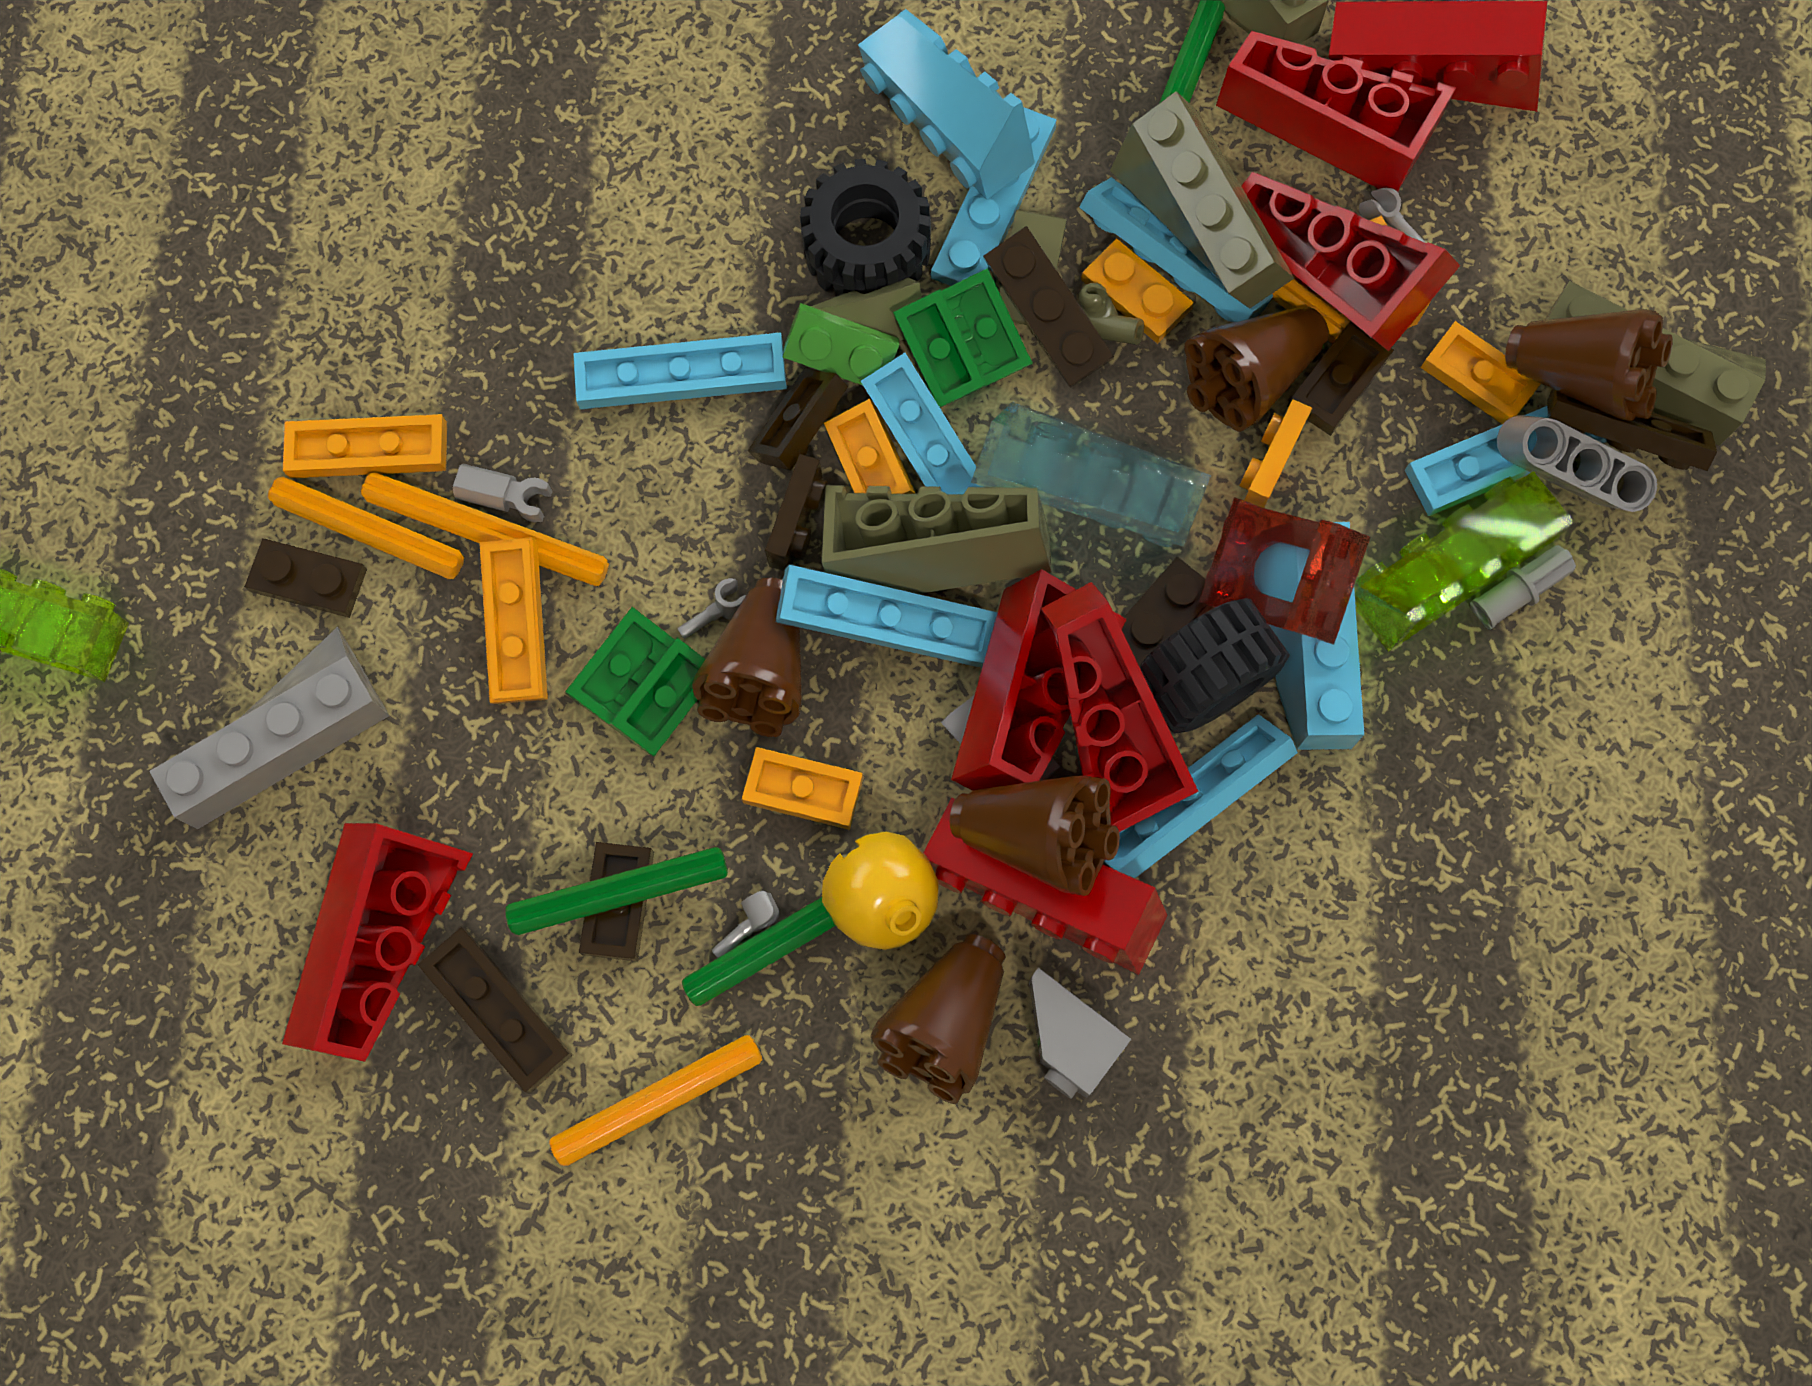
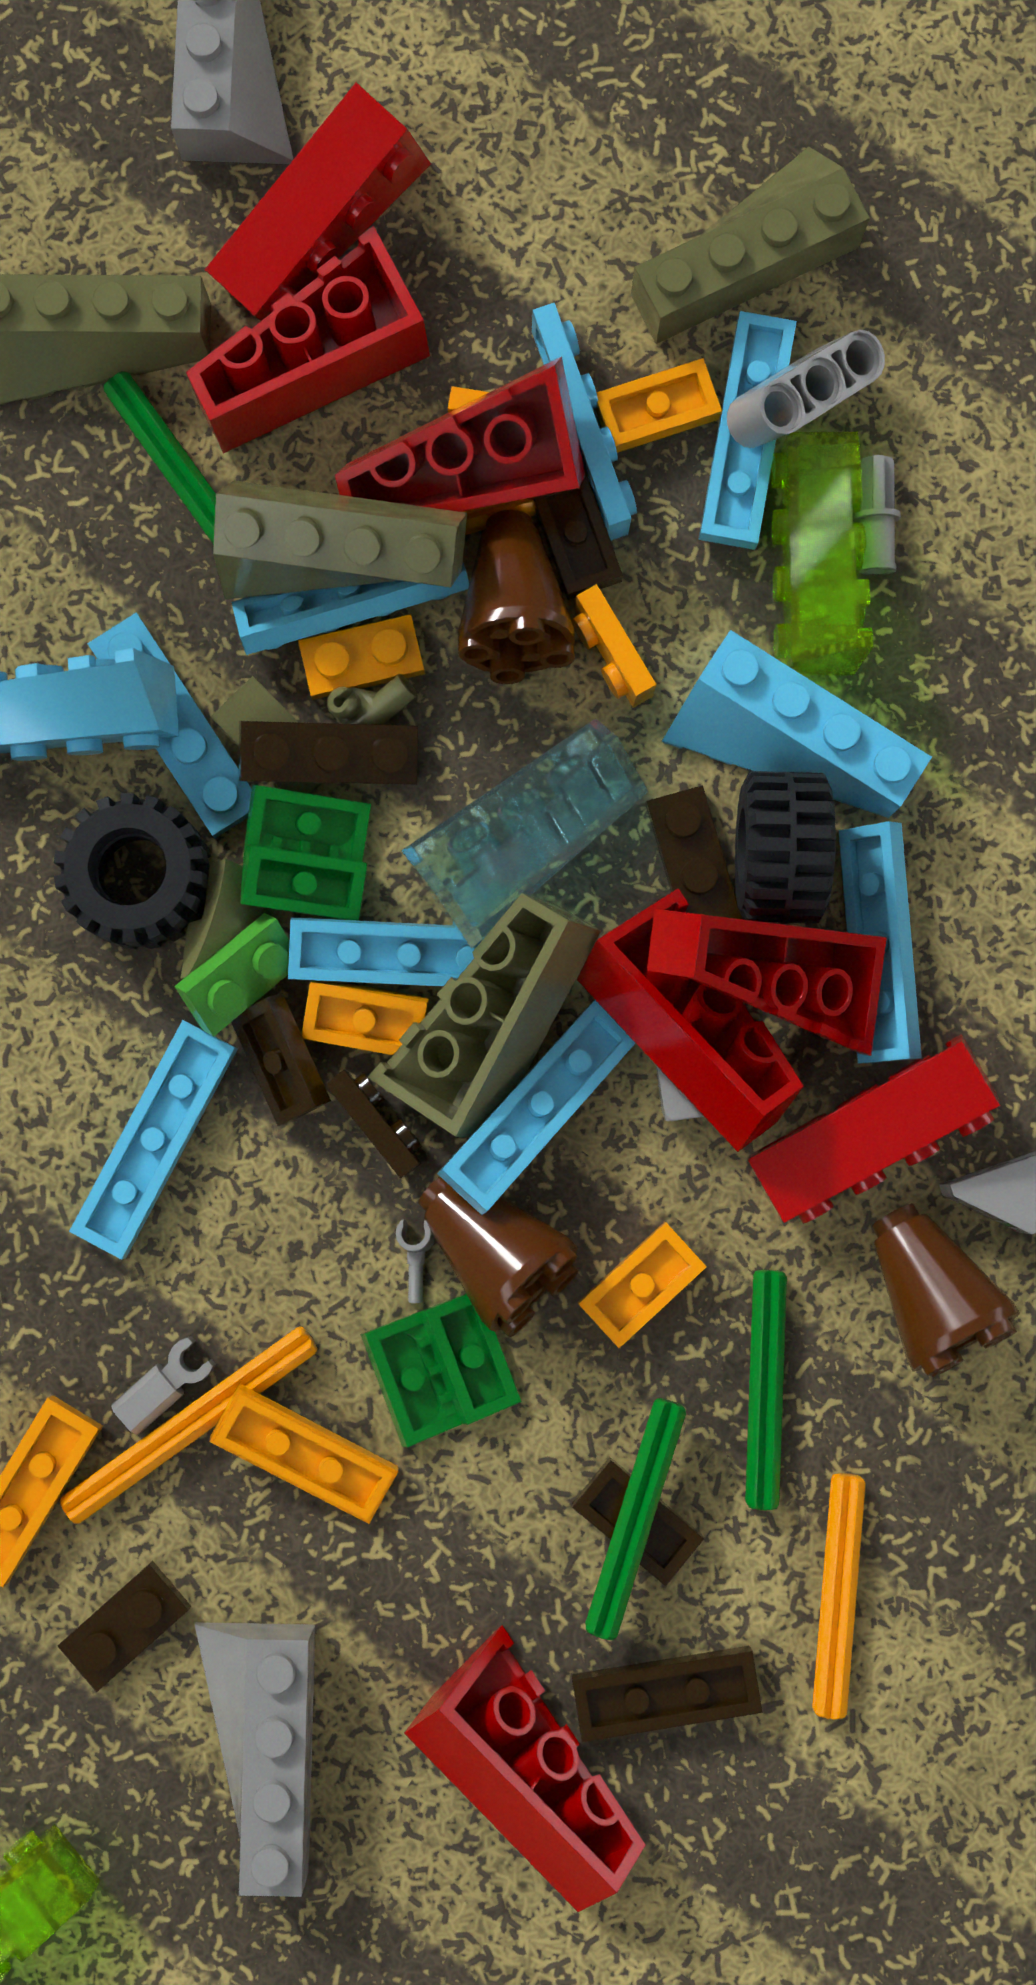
camera: 60 degrees left, 10 degrees up
(366, 527) = (110, 1538): light orange axle -> none
(760, 912) = (730, 1395): light grey hand -> none
(881, 891) = (795, 1278): yellow cylinder -> none
(1042, 828) = (849, 1109): reddish brown cone -> none
(1325, 581) = (770, 667): clear red panel -> none
(1388, 206) = (441, 372): light grey hand -> none
(1416, 344) = (596, 444): none -> medium azure plate
(1595, 358) = (731, 305): reddish brown cone -> none
(1672, 440) = (805, 317): dark brown plate -> none

